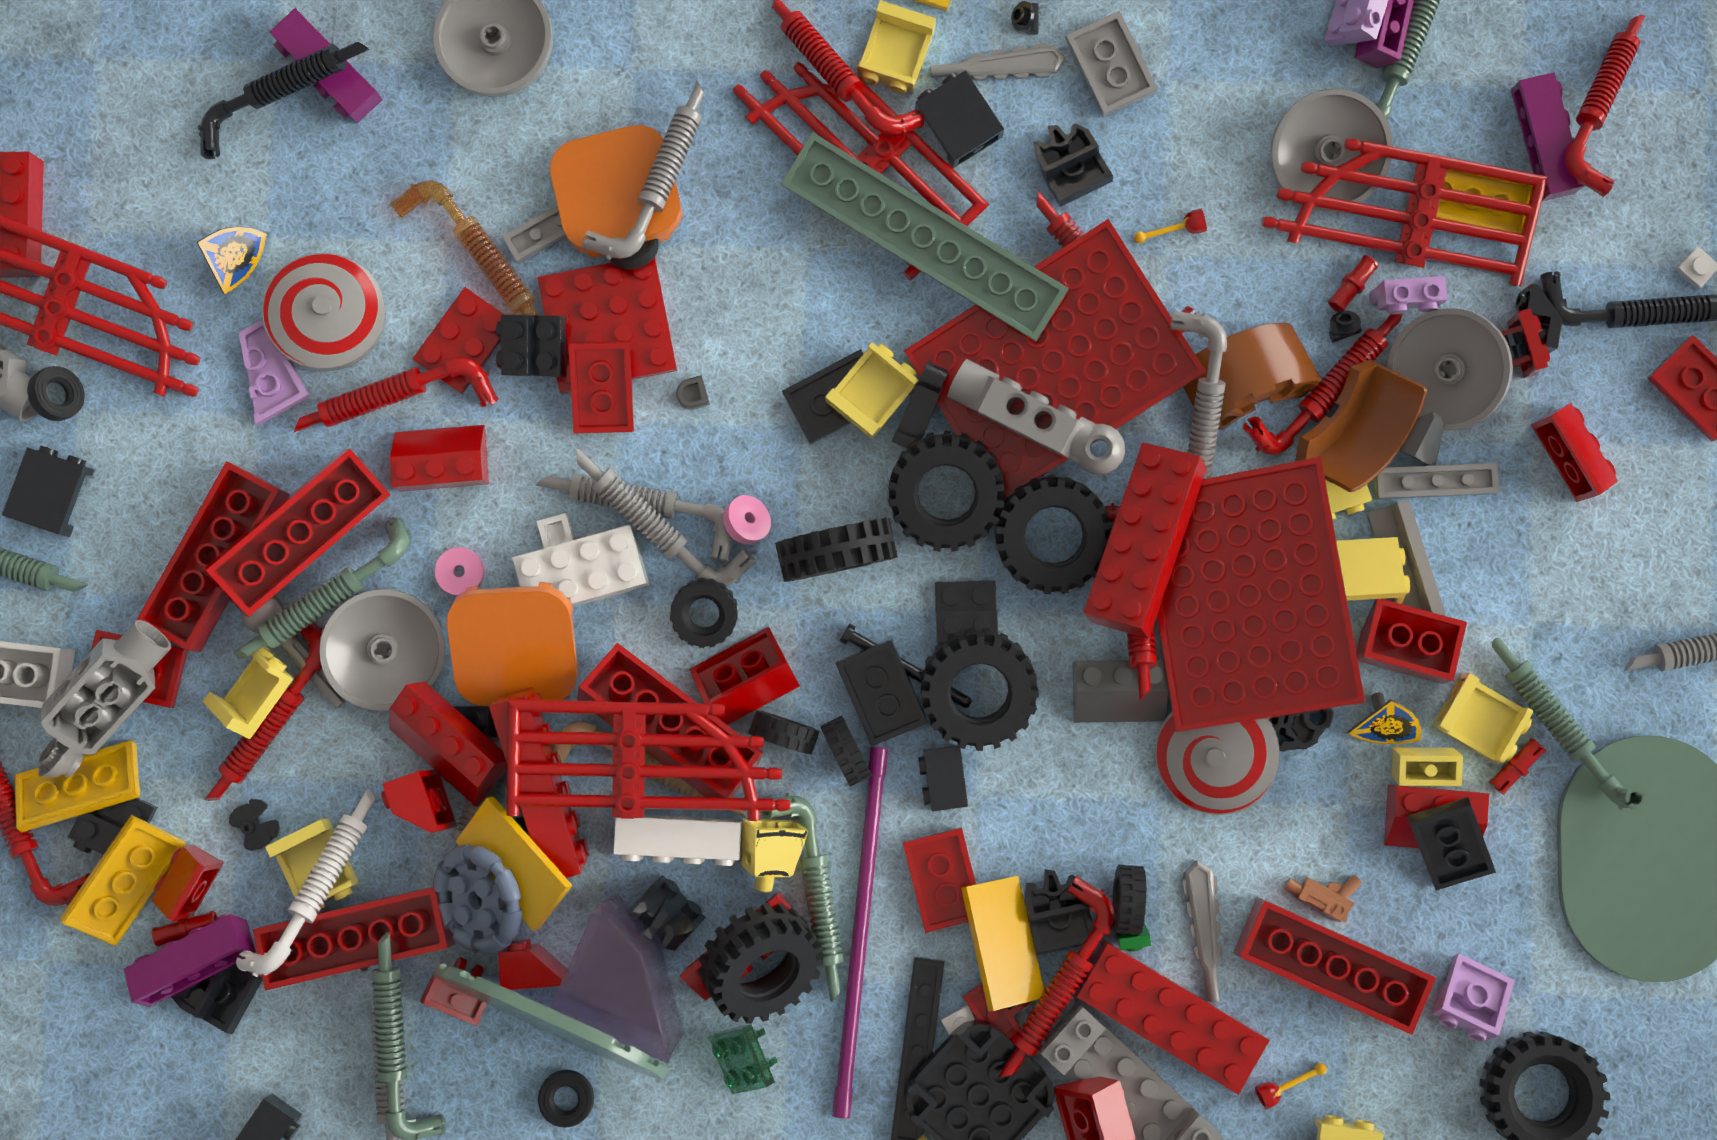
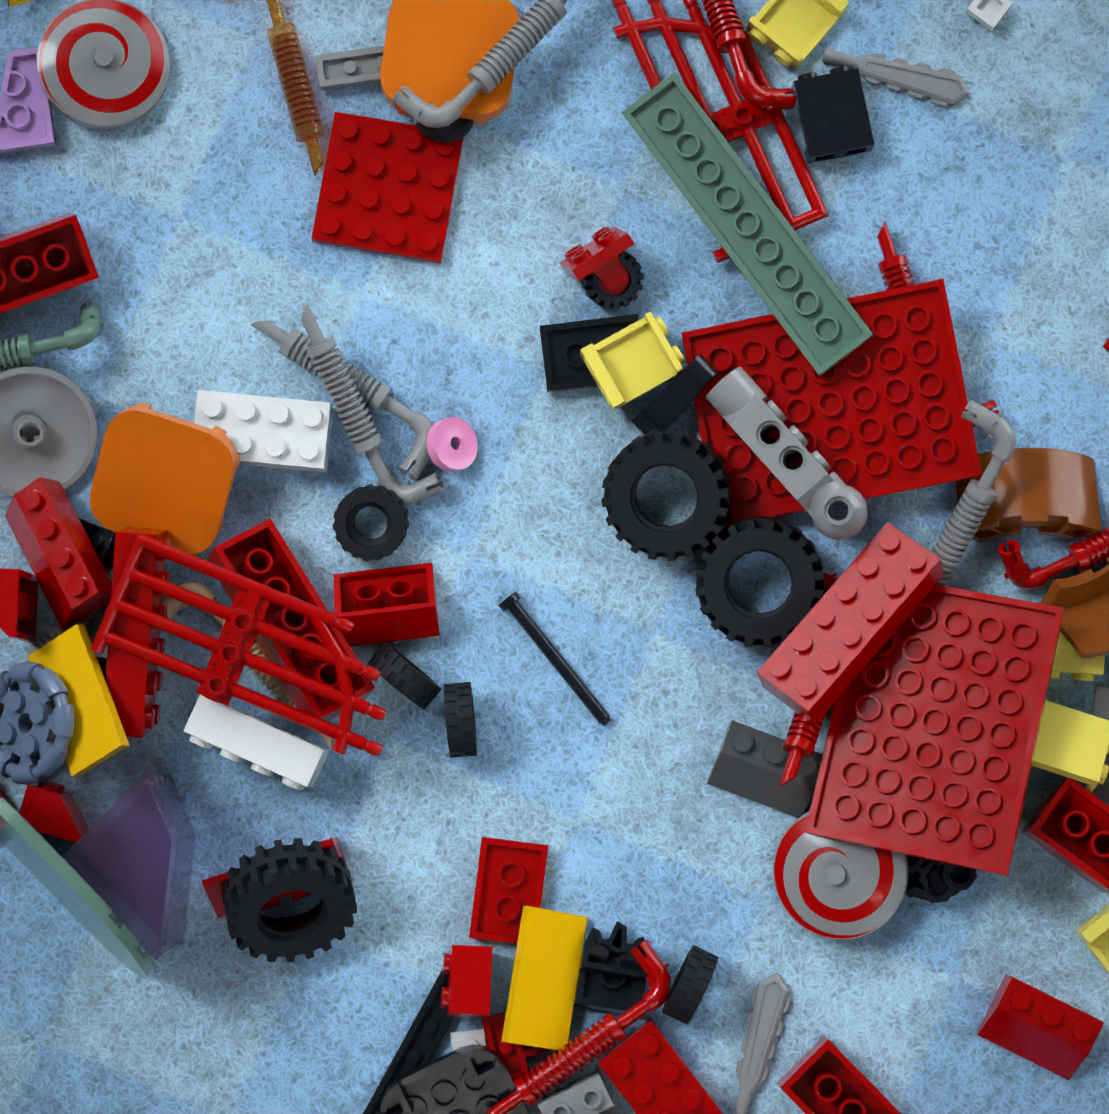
camera: 20 degrees right, 0 degrees up
(397, 389) = (146, 171): red piece -> none
(439, 458) = (162, 259): red slope -> none
(446, 567) = (135, 368): bright pink piece -> none
(463, 331) = (234, 147): red plate -> none
(532, 345) = (302, 180): black plate -> none
(555, 530) = (252, 379): white plate -> none
(561, 1117) = (17, 956): black tyre -> none
(601, 387) = (356, 250): red plate -> none
(666, 913) = (213, 813): black plate -> none
(692, 393) = (447, 293): dark grey tile -> none
(742, 1059) = (232, 991): clear green plate -> none
(771, 849) = (344, 790): light yellow torso -> none
(818, 320) = (607, 271): none -> plate
(818, 891) = (377, 850): sand green piece -> none
(836, 549) = (530, 510): black tyre -> none
(843, 1090) = (324, 1062): magenta piece -> none
(881, 692) = (520, 674): black plate -> none
(939, 970) = (468, 981): none -> red brick
(944, 778) = (550, 787): black brick -> none
(963, 607) = (639, 628): black plate -> none
(976, 649) = (631, 667): black tyre -> none
(1026, 17) = (944, 36): black plate -> none
(1071, 163) = (931, 206): black plate -> none
(1111, 64) = (1013, 118): light grey plate -> none
(1133, 942) = (679, 1031): green plate -> none
(1193, 222) = (1033, 315): hinge -> none
(1330, 899) = (897, 1069): nougat piece -> none
(1388, 723) = (1029, 911): shield -> none
(1426, 766) = (1051, 970): light yellow brick -> none
(1451, 843) = (1044, 1058): black plate -> none

